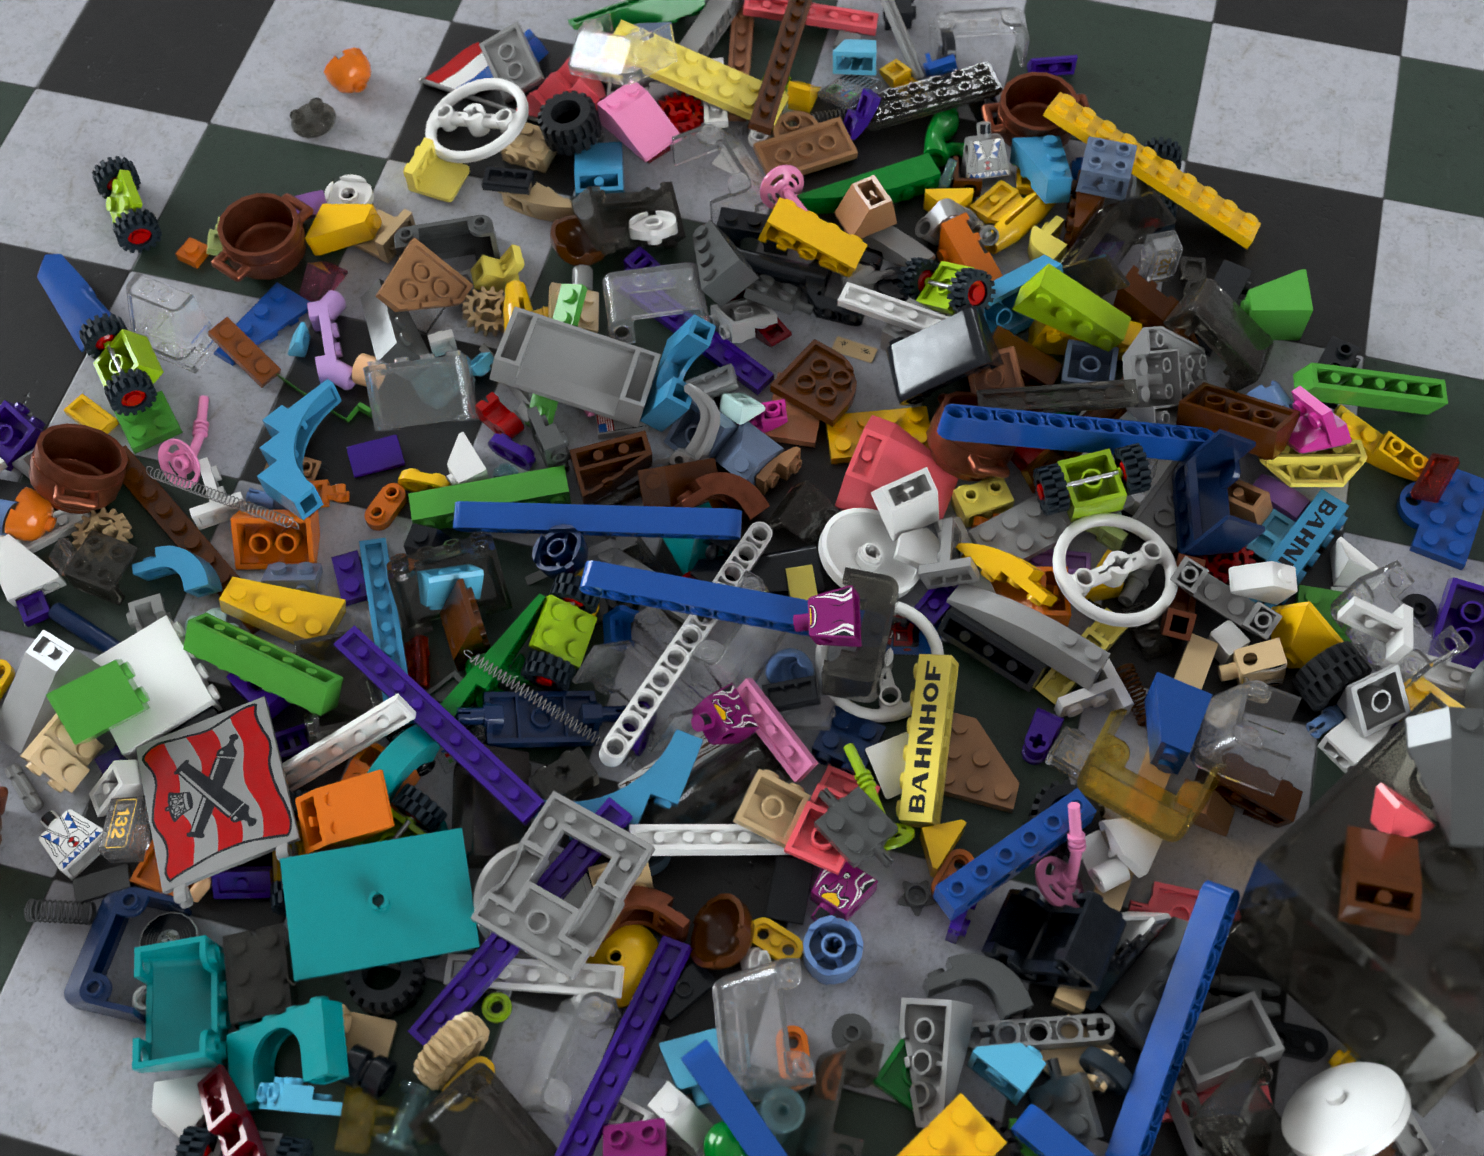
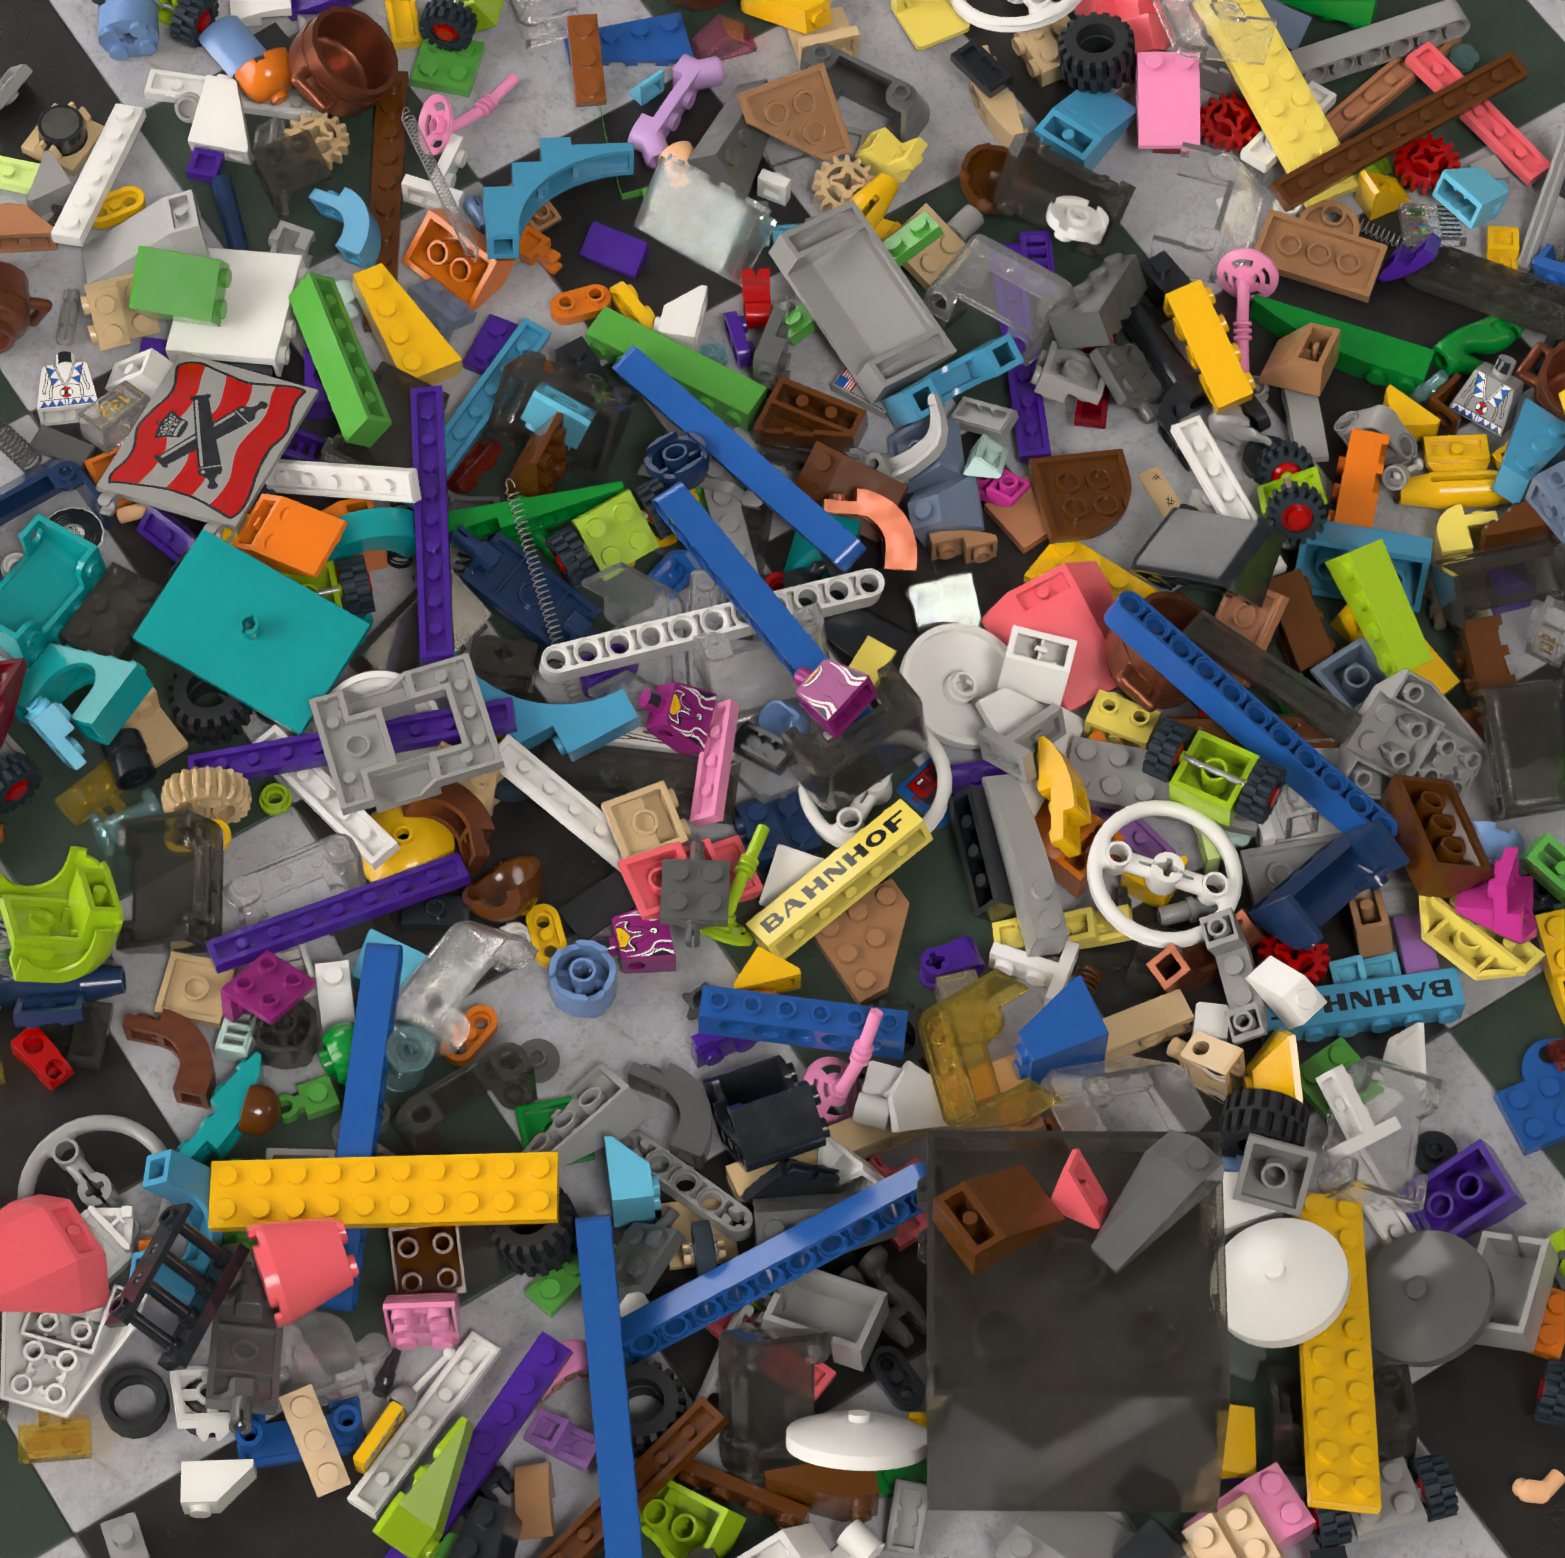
camera: 40 degrees right, 0 degrees up
(812, 60) = (1426, 163): none -> red gear

